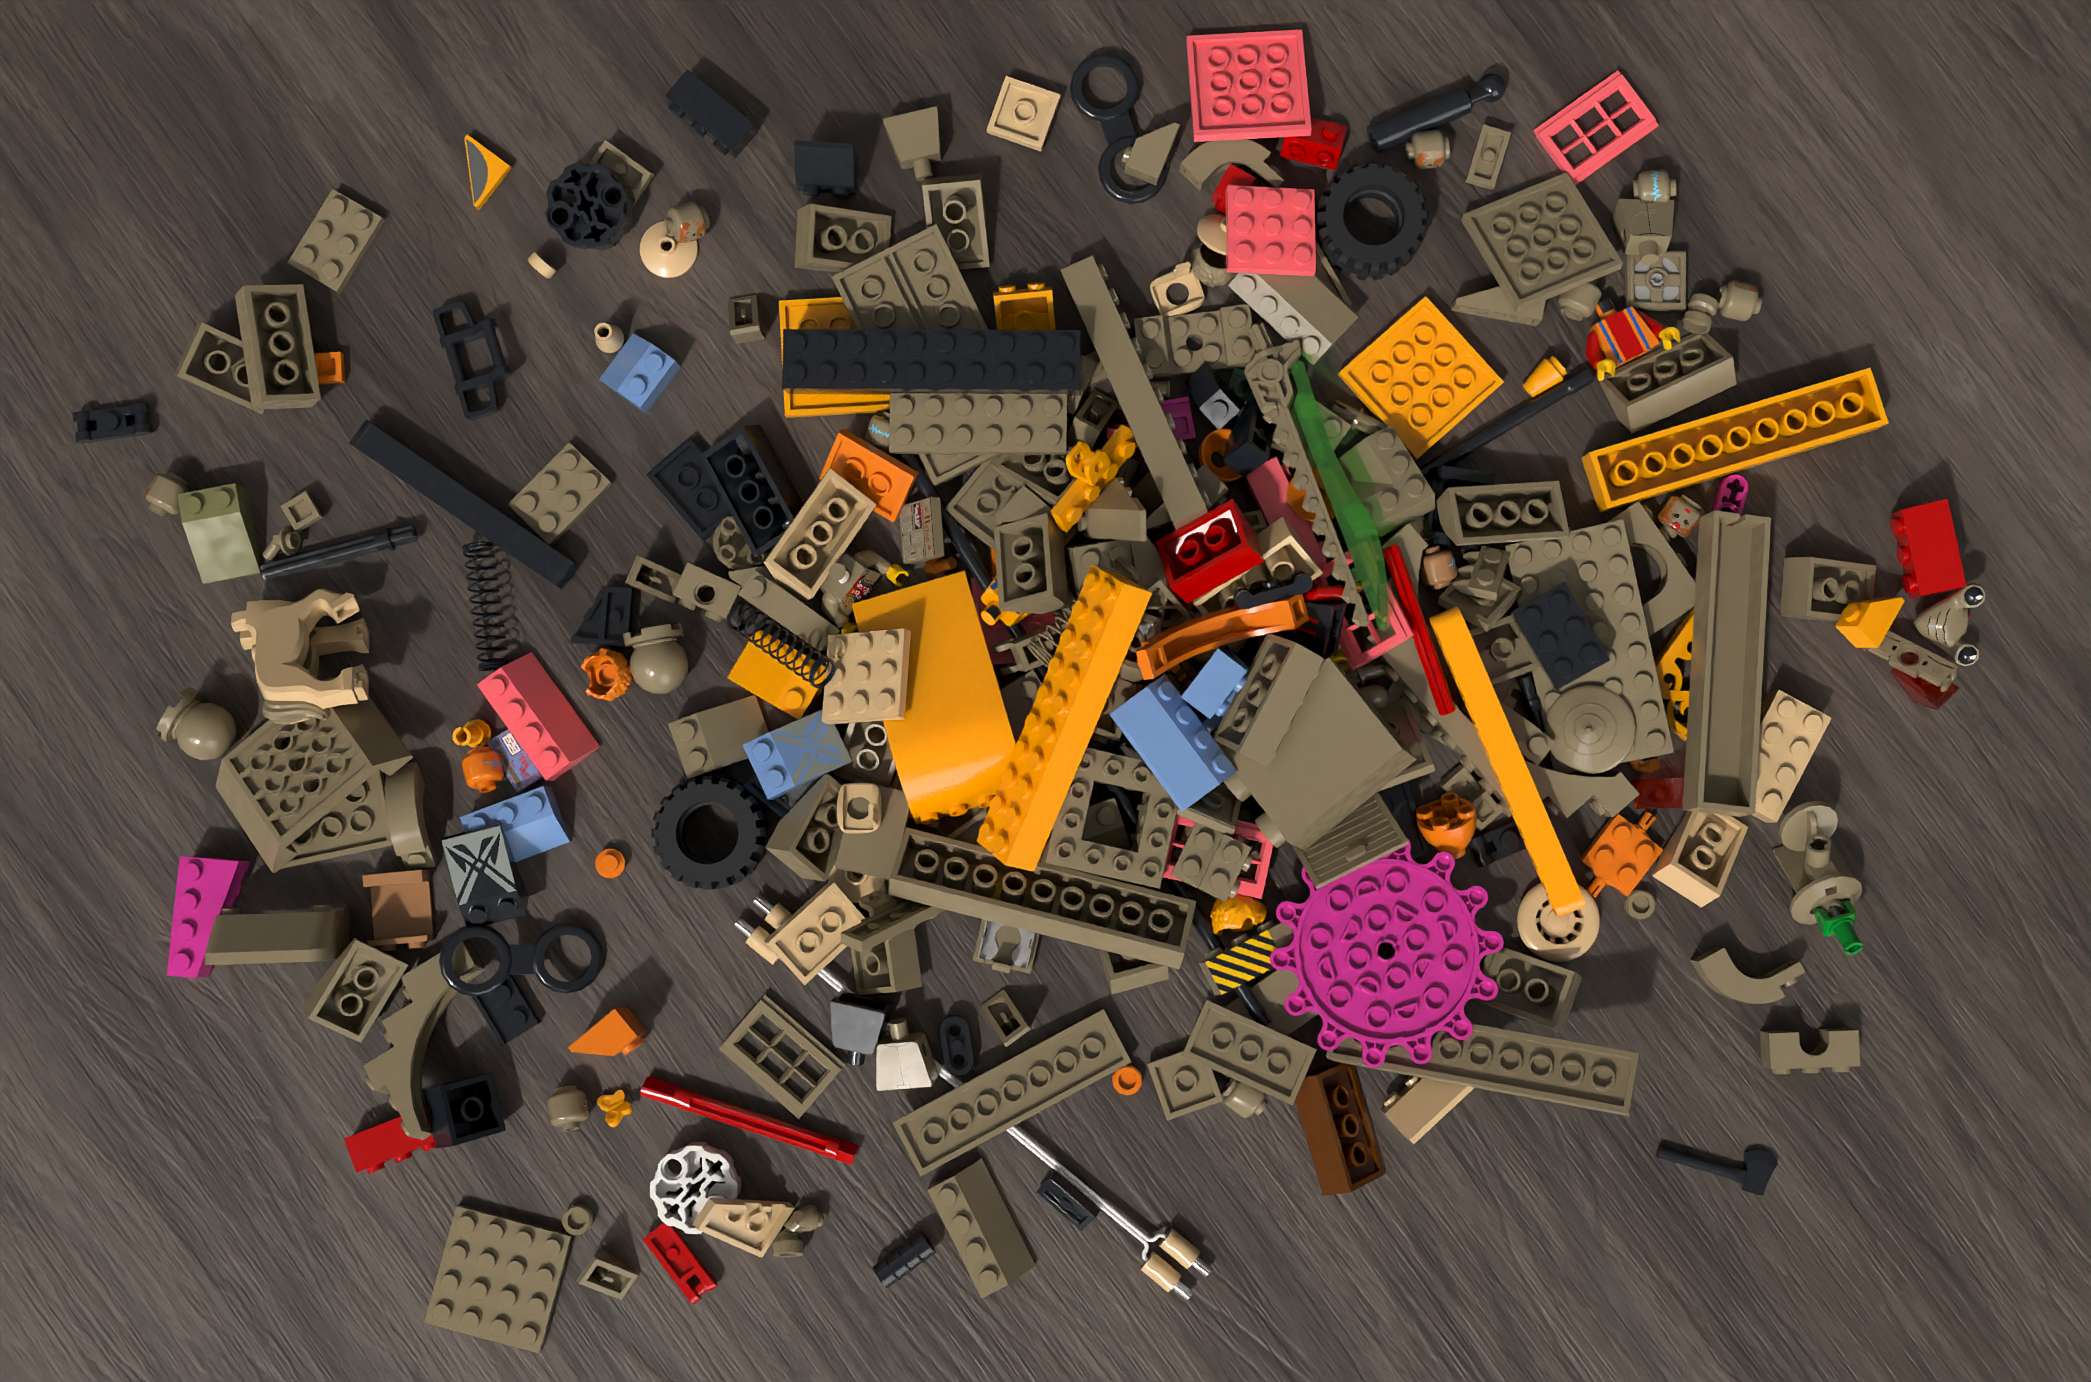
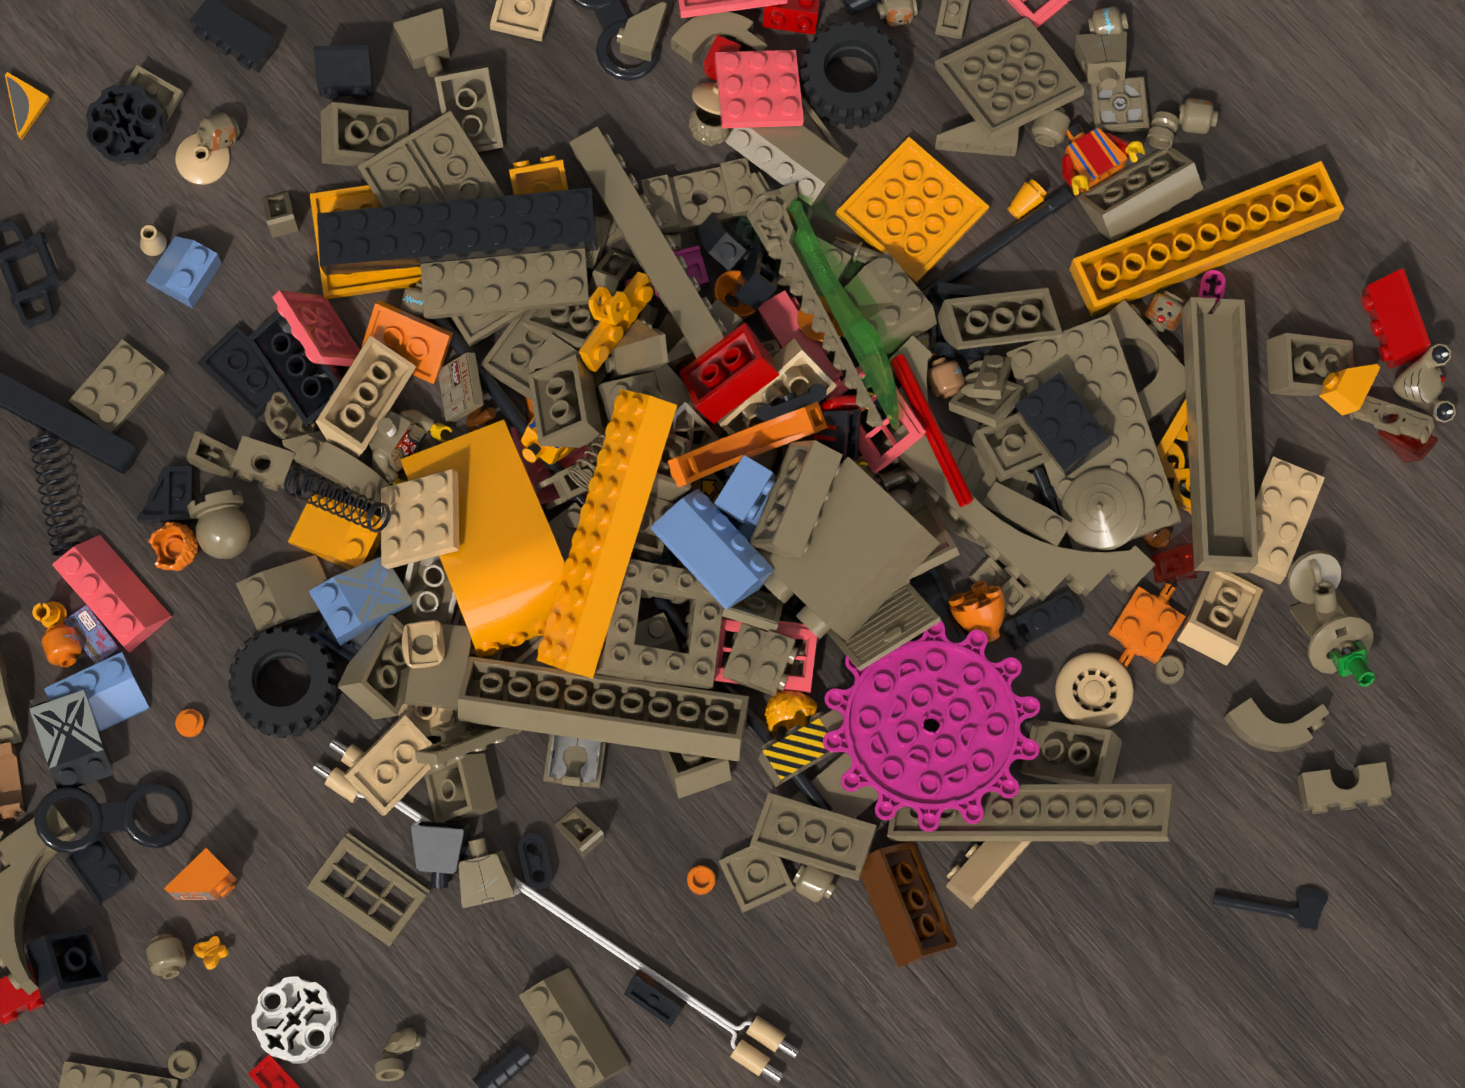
camera: 10 degrees left, 10 degrees down
(541, 265) = (85, 182): tan tile -> none
(744, 1223) = (345, 1045): tan wing -> none
(748, 1120) = (341, 952): red piece -> none
(775, 455) = (317, 328): none -> coral plate
(1011, 1092) = (591, 898): dark tan plate -> none
(1183, 275) = (684, 139): tan piece -> none
(1507, 762) = (1027, 543): light orange beam -> none

